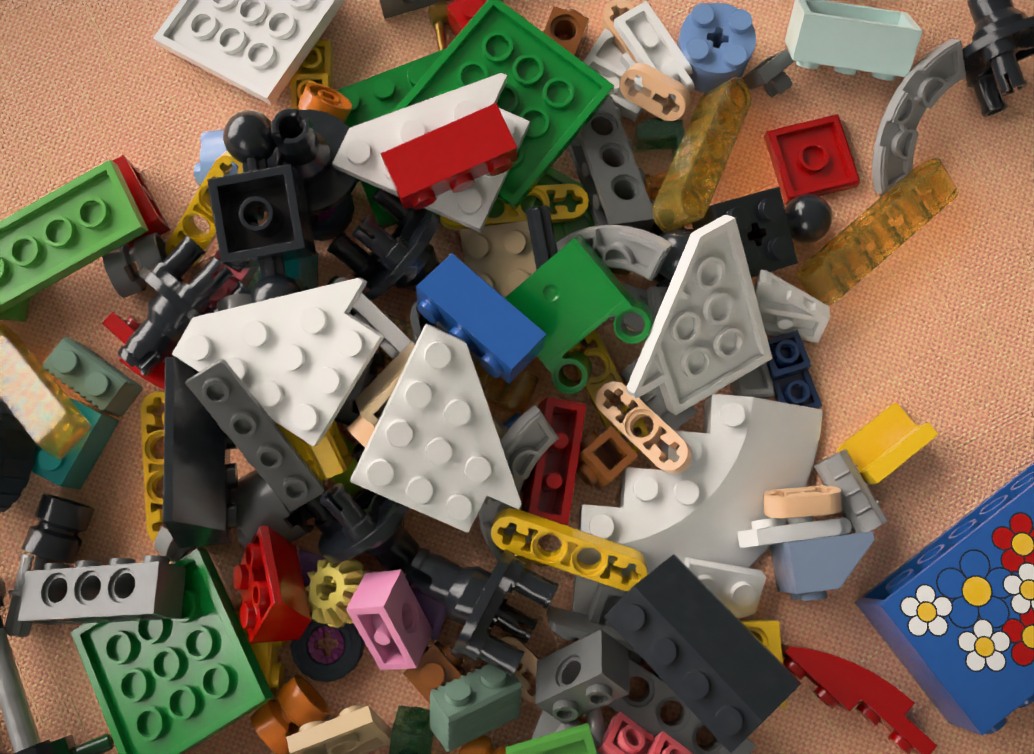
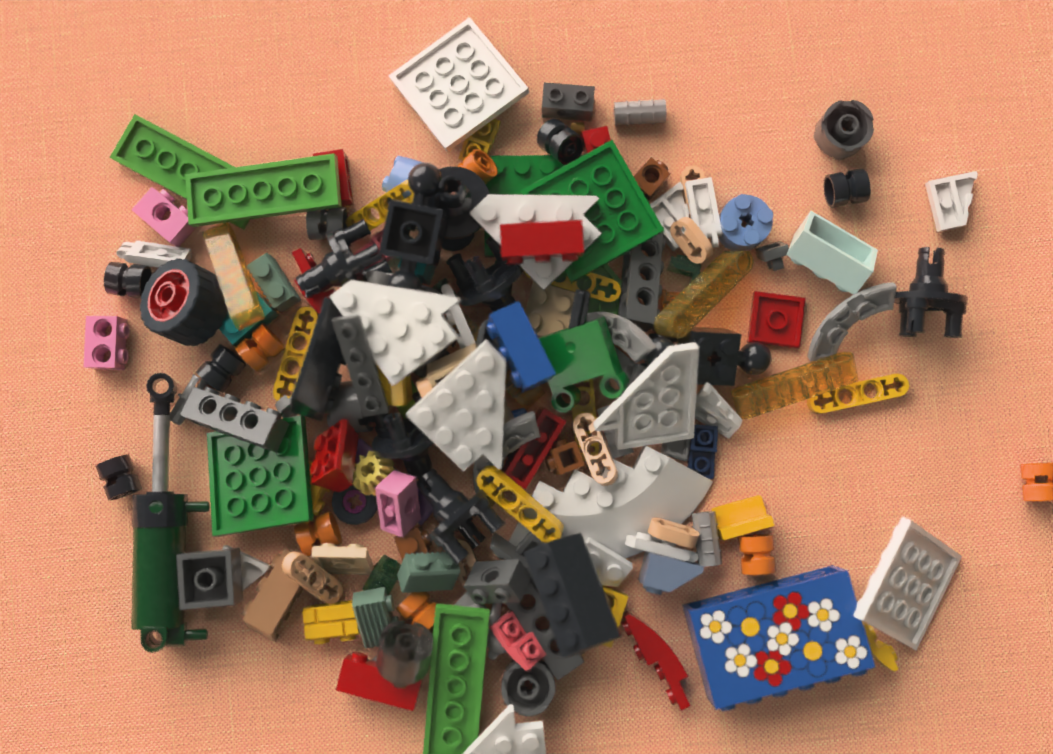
camera: 25 degrees right, 5 degrees up
(104, 476) = (260, 347): none -> orange wheel
(421, 31) = (560, 141): none -> black wheel
(931, 486) = (757, 554): none -> orange wheel
(964, 212) = (858, 395): none -> yellow beam

